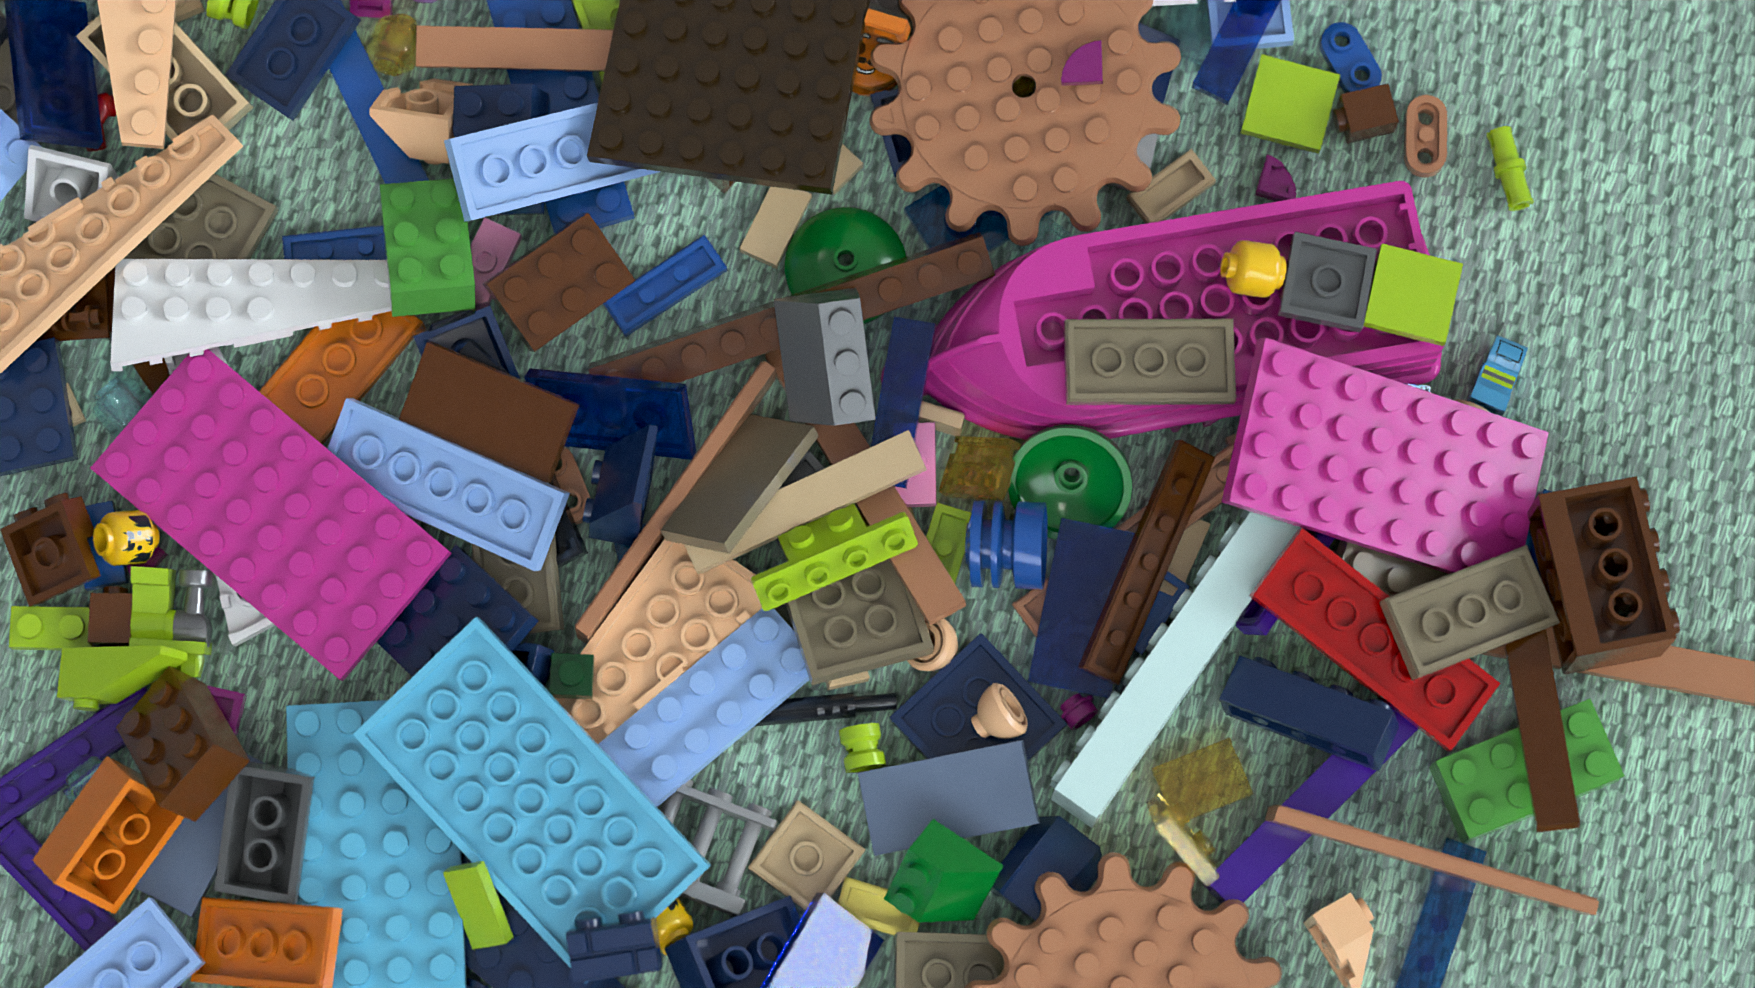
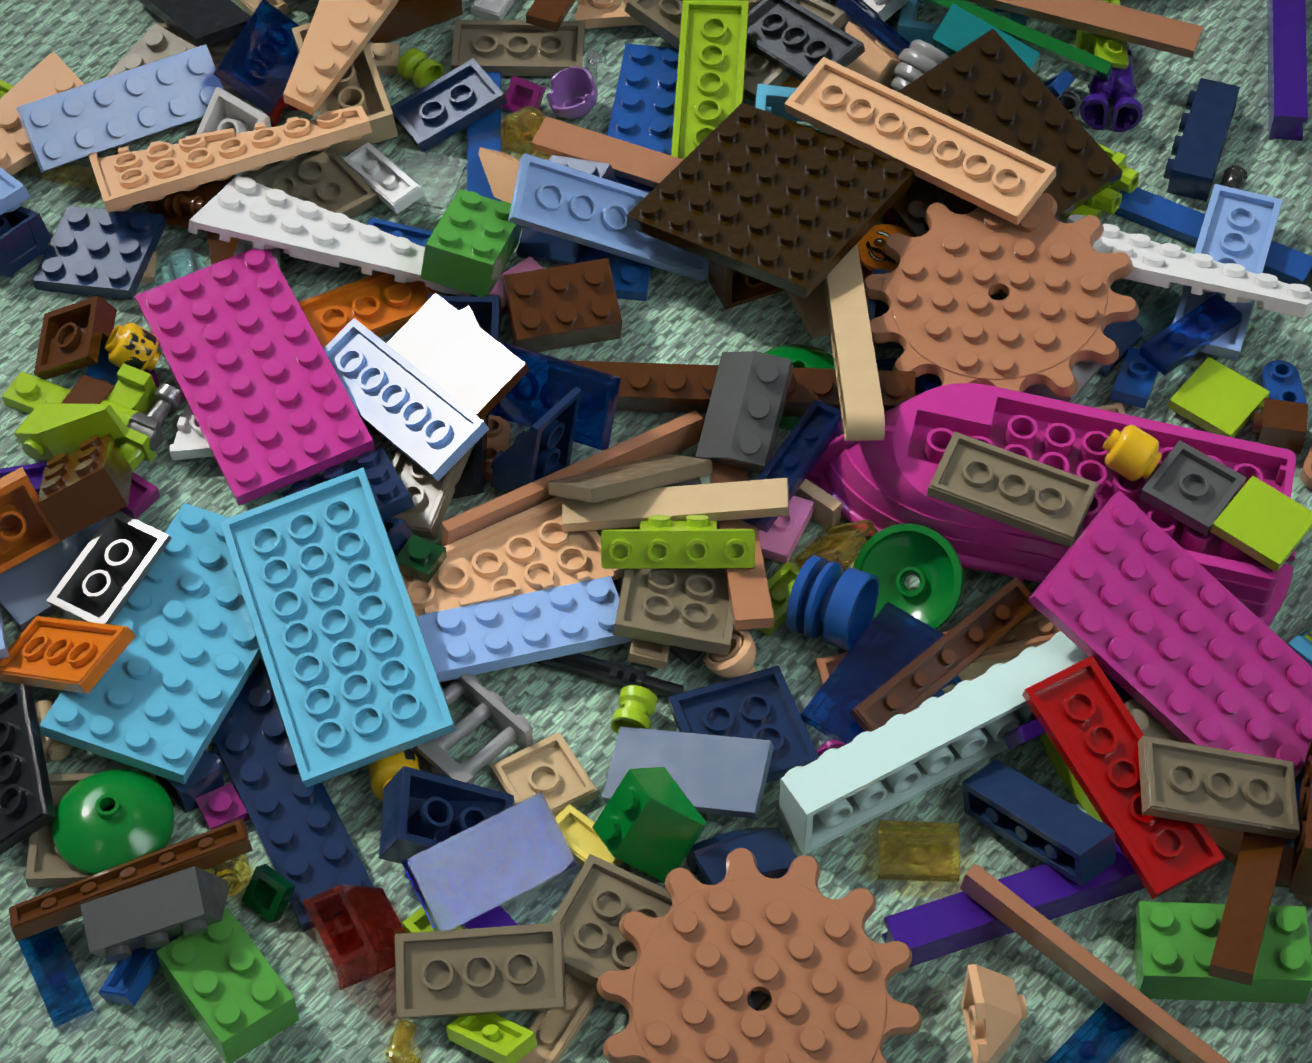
camera: 25 degrees right, 25 degrees down
(275, 182) = (384, 177): none -> white tile
(316, 158) = (436, 175): none -> clear tile
(478, 905) = (248, 688): lime tile -> none
(615, 948) = (339, 752): dark blue brick -> none
(665, 285) = (649, 346): blue tile -> none
(775, 225) = (758, 334): tan tile -> none
(887, 25) = (907, 214): orange tile -> none
(915, 250) = (854, 351): none -> tan beam
(999, 714) = (762, 720): light nougat brick -> none
(1084, 66) = (1053, 285): magenta tile -> none
(1192, 847) = (886, 890): clear yellow plate -> none
(1197, 113) = (1134, 380): none -> blue plate

